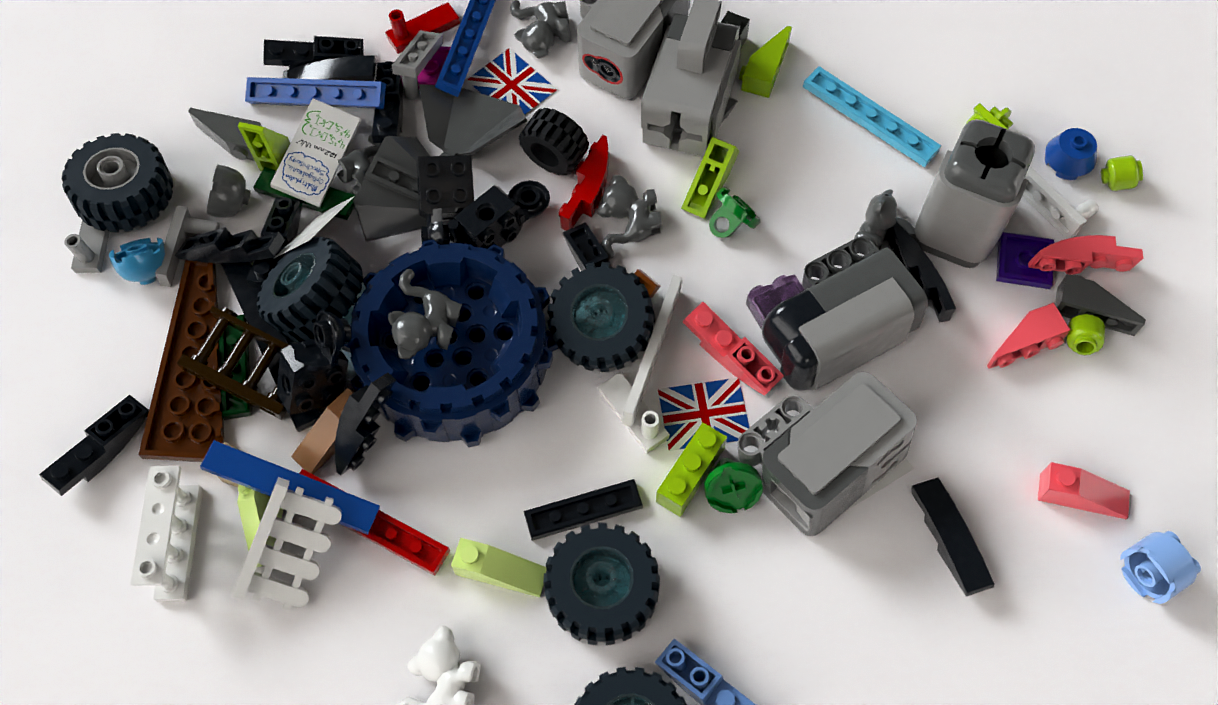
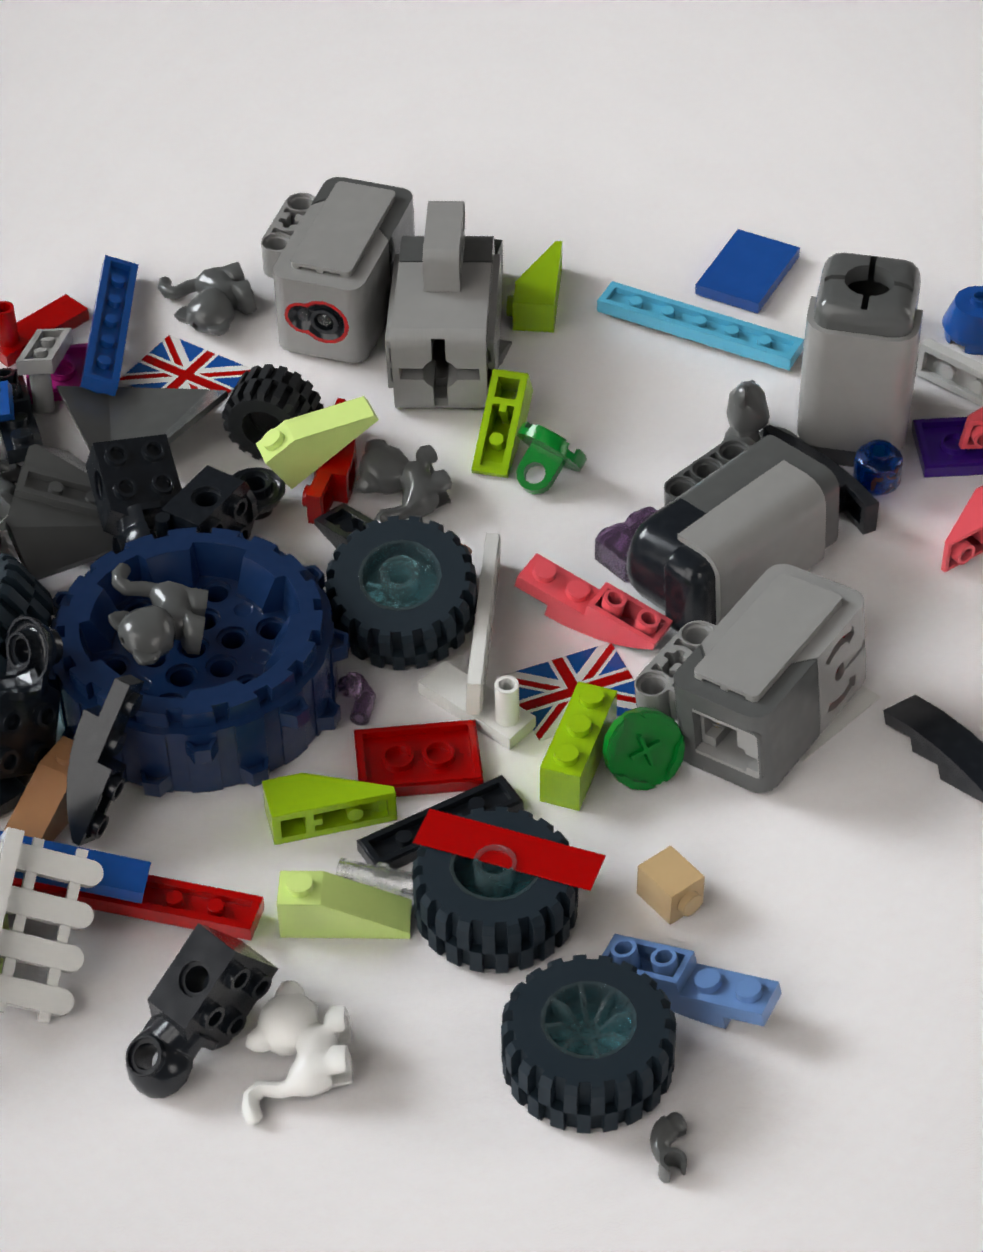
camera: 15 degrees left, 20 degrees down
(378, 636) = (194, 1006): none -> black brick
(498, 476) = (320, 805): none -> lime slope
(527, 546) = (377, 876): none -> clear pin
(559, 388) = (363, 694): none -> clear purple arm
(574, 172) = (310, 440): none -> yellowish green slope
(582, 449) = (420, 757): none -> red tile
(632, 576) = (533, 854): none -> red sticker
(724, 605) = (670, 885): none -> tan brick
(918, 72) = (747, 271): none -> blue tile
(964, 274) = (878, 467): none -> clear blue head

